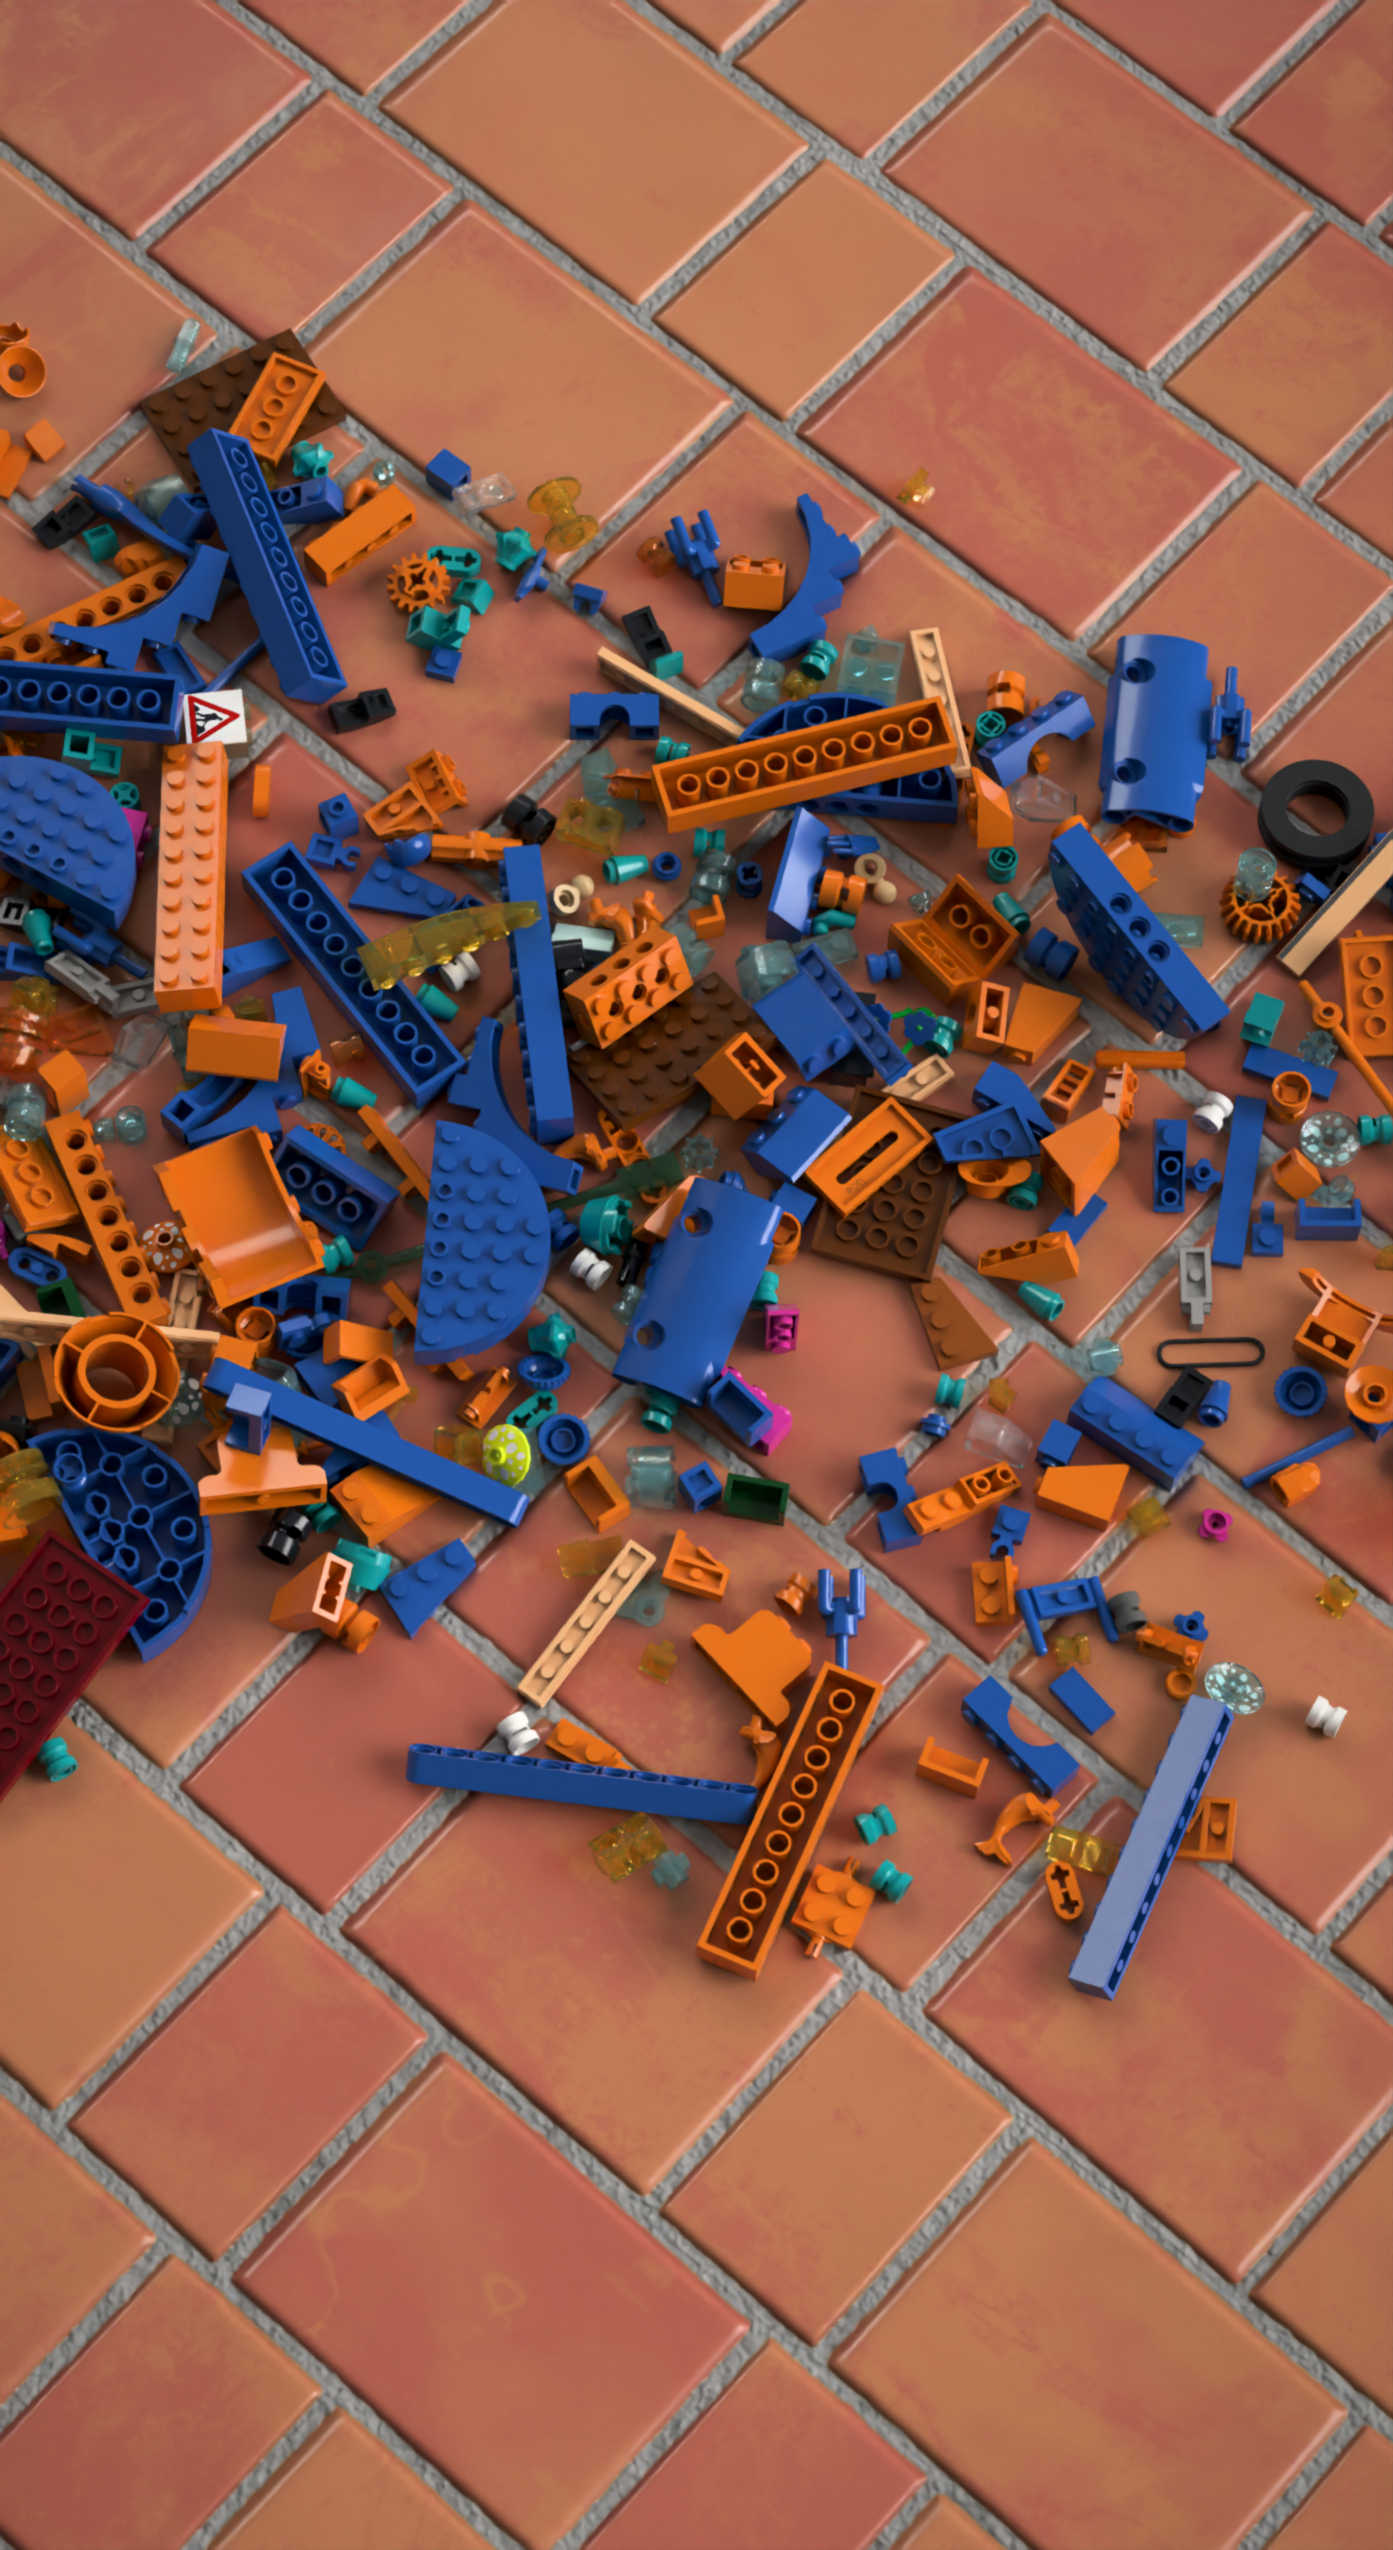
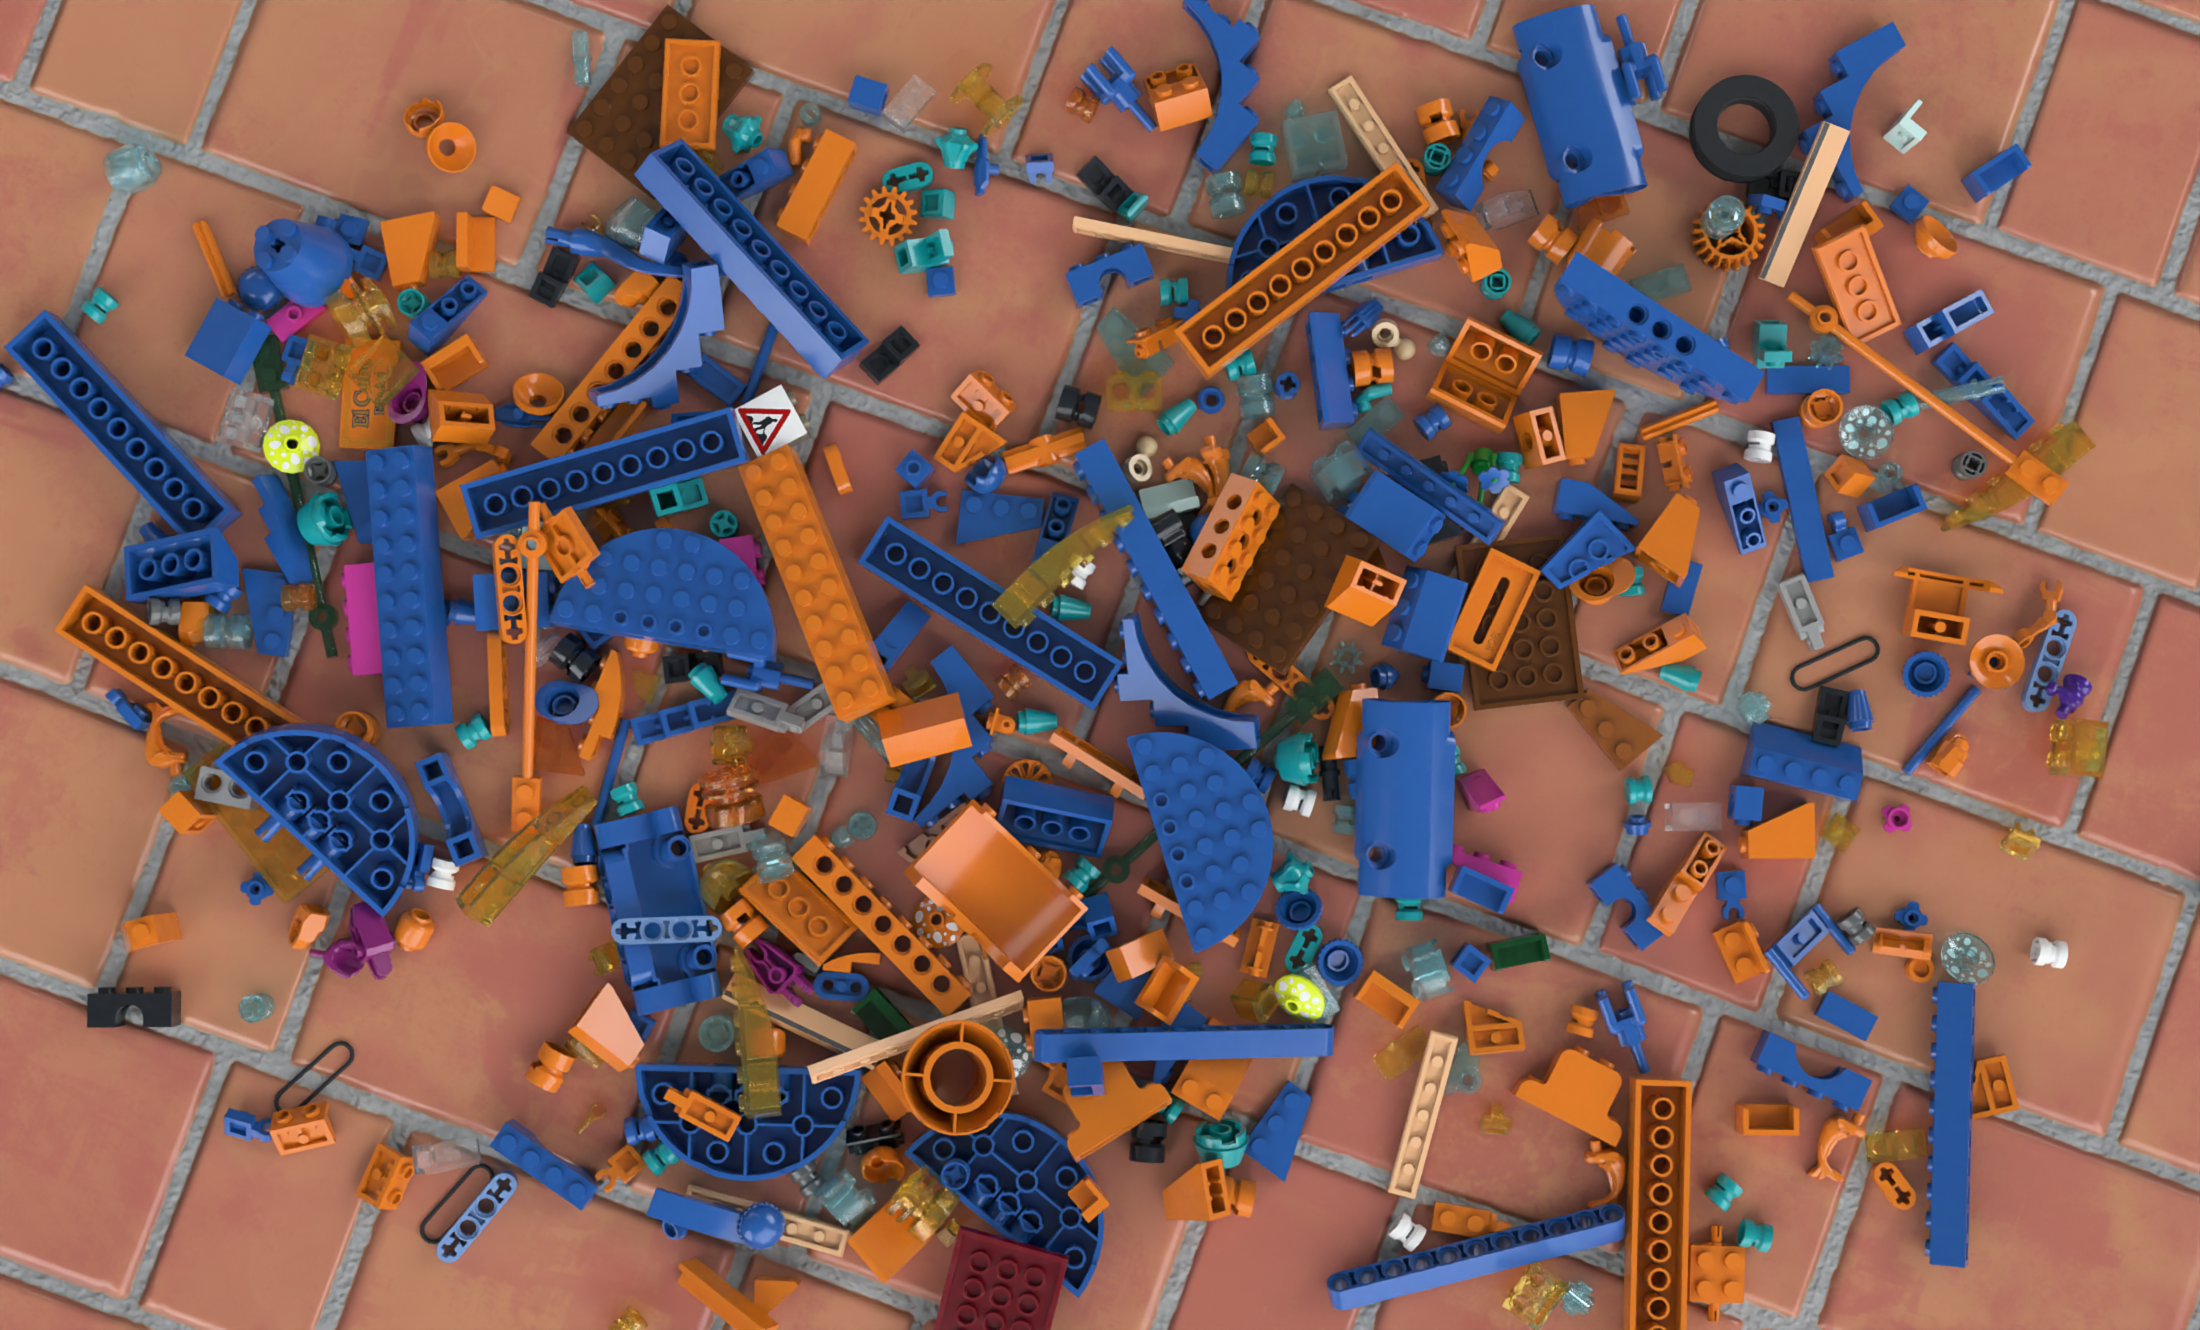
camera: 20 degrees left, 20 degrees up
(197, 1552) = (1088, 1198): none -> orange panel

